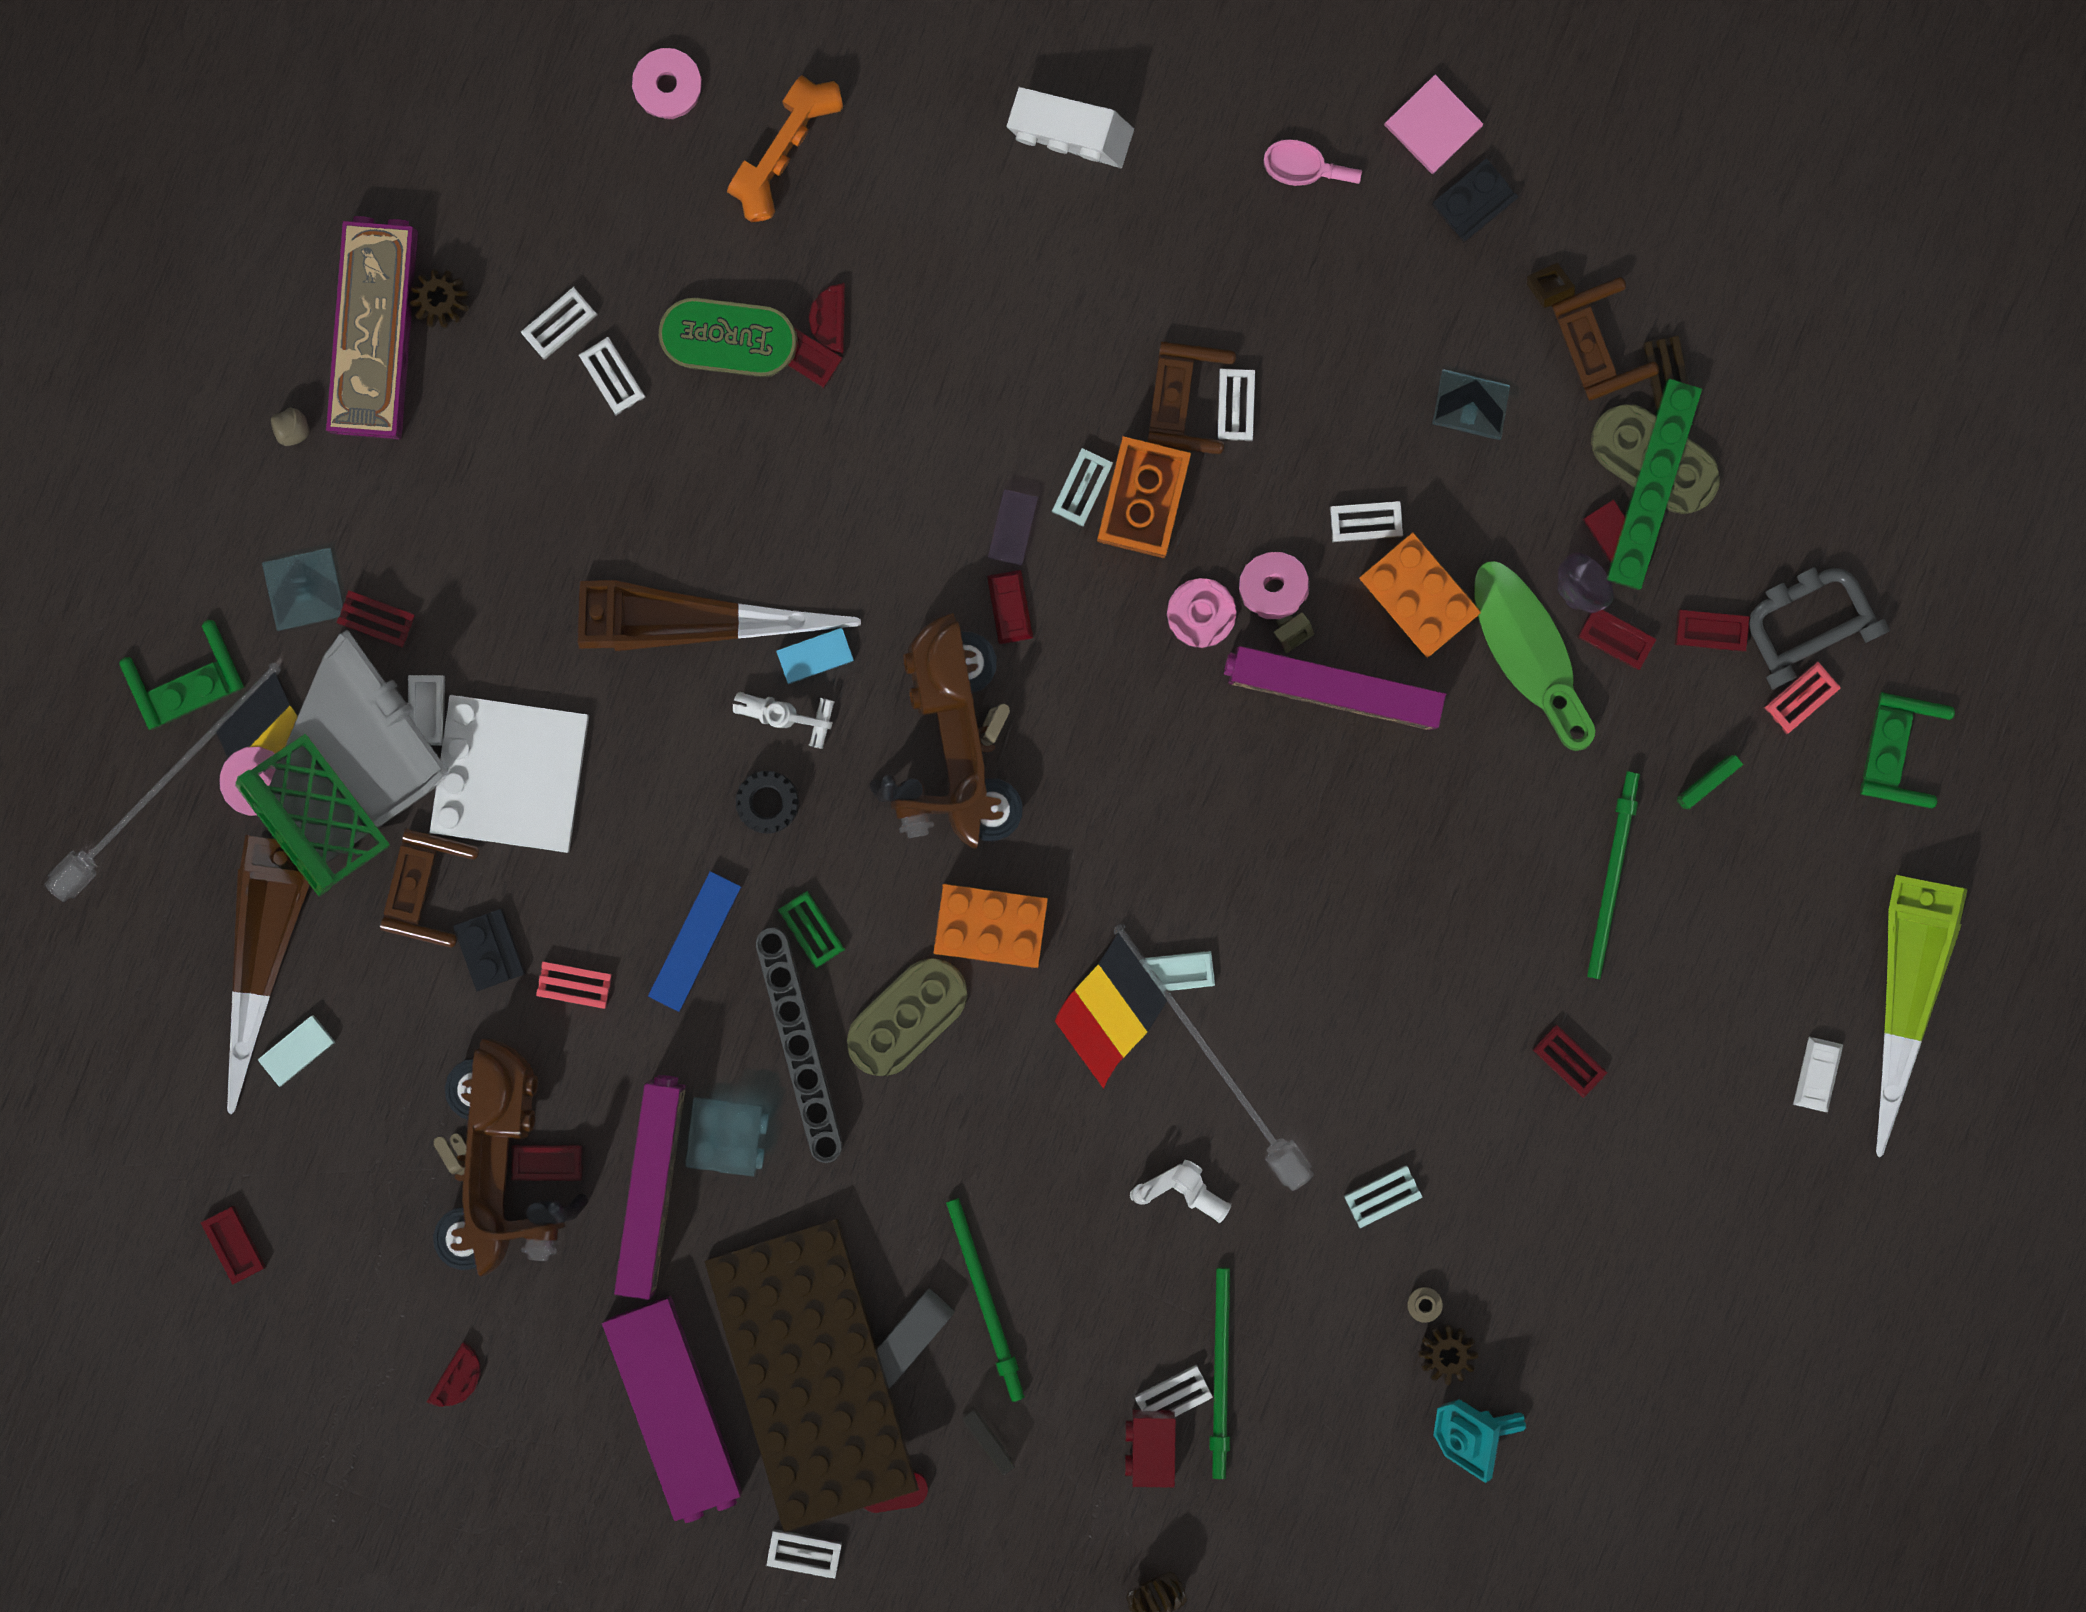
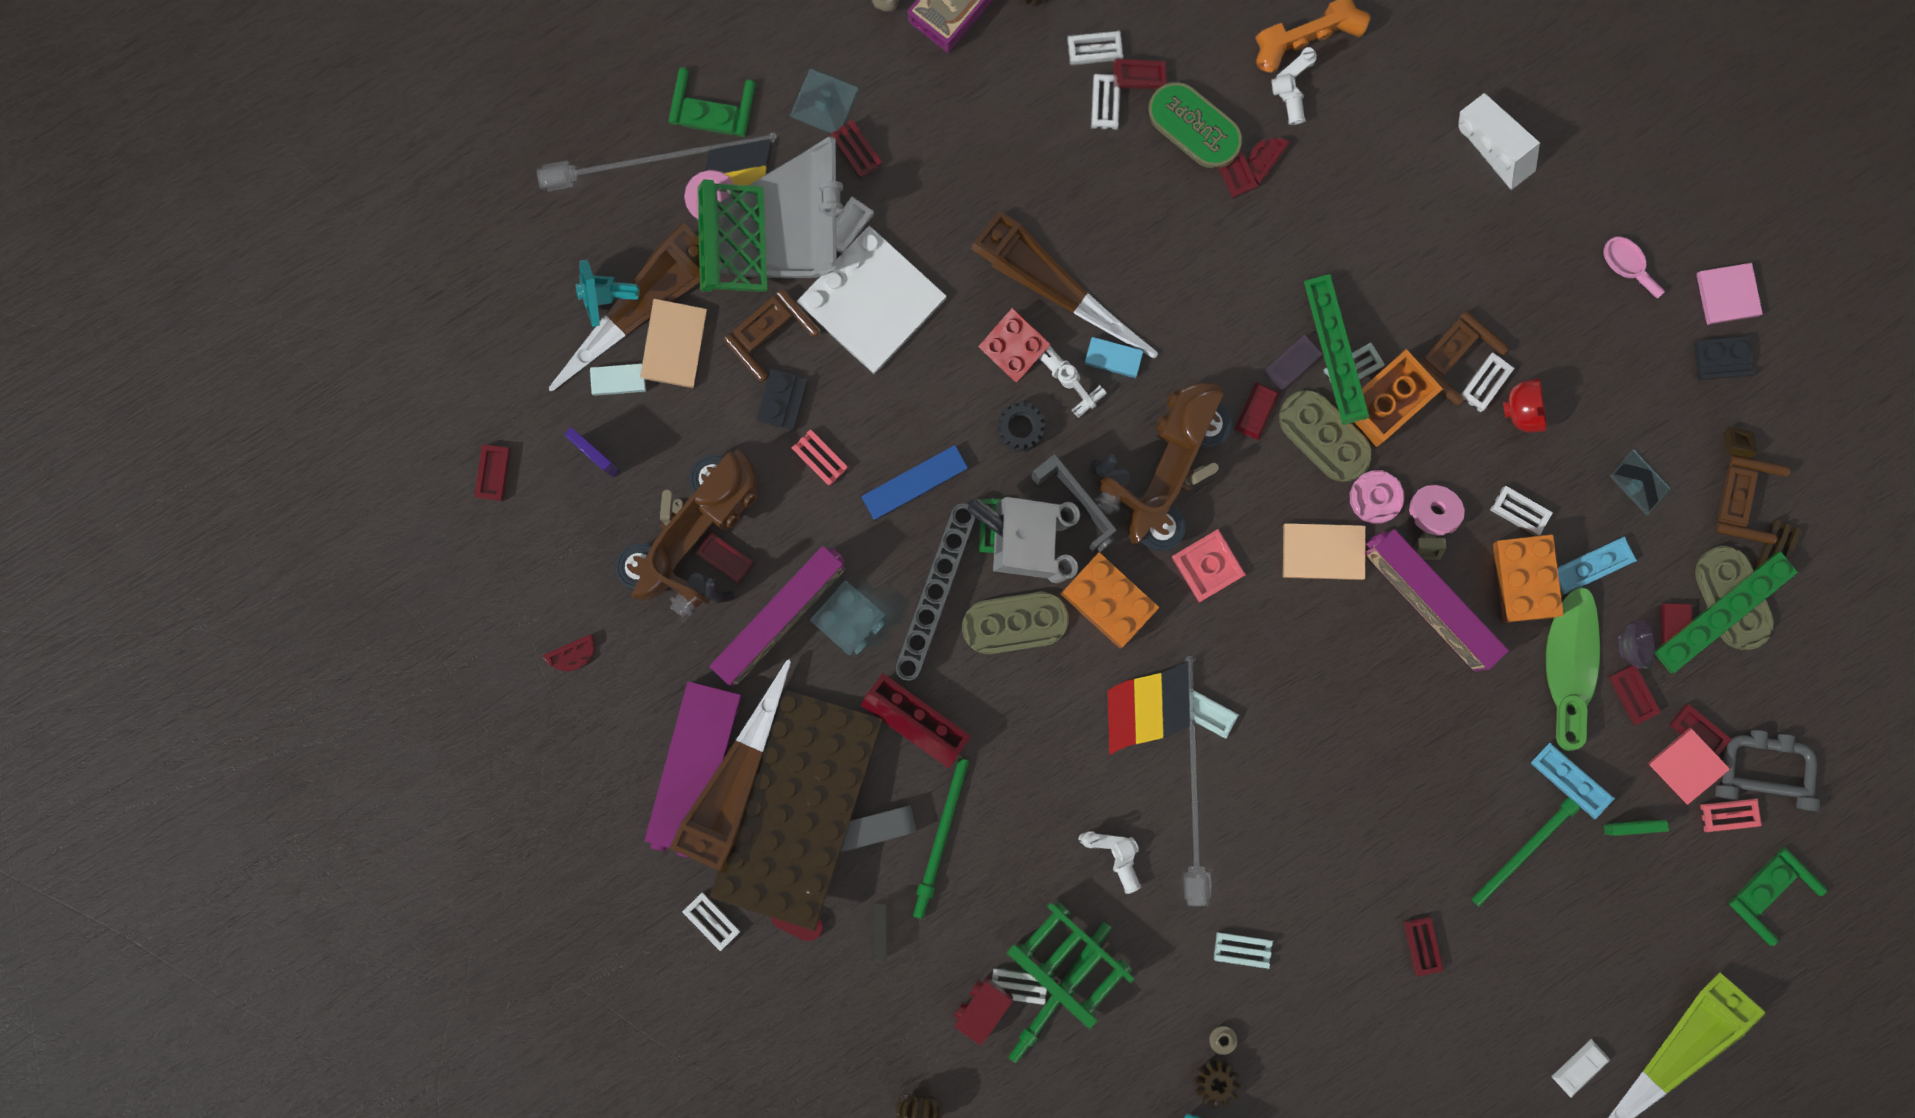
camera: 30 degrees right, 5 degrees down
(211, 970) = (601, 290): none -> teal piece
(326, 1151) = (591, 452): none -> dark purple tile
(328, 971) = (673, 343): none -> light nougat tile
(628, 320) = (1139, 73): none -> dark red tile
(699, 718) = (1014, 345): none -> hinge
(731, 1441) = (717, 813): none -> reddish brown plate
(797, 224) = (1286, 88): none -> white pin
(828, 831) = (1054, 466): none -> dark grey panel
(855, 919) = (1027, 536): none -> light grey piece
(872, 1196) = (915, 720): none -> dark red brick
(1048, 487) = (1336, 350): none -> green plate
(1071, 812) = (1208, 565): none -> coral tile
(1101, 584) = (1319, 433): none -> olive tile
(1184, 712) = (1324, 551): none -> light nougat tile
(1189, 1365) = (1044, 972): none -> green fence
(1296, 405) = (1527, 406): none -> red cylinder
(1482, 528) = (1594, 565): none -> medium azure tile
(1609, 778) = (1572, 781): none -> medium azure tile
(1722, 677) = (1688, 766): none -> coral tile

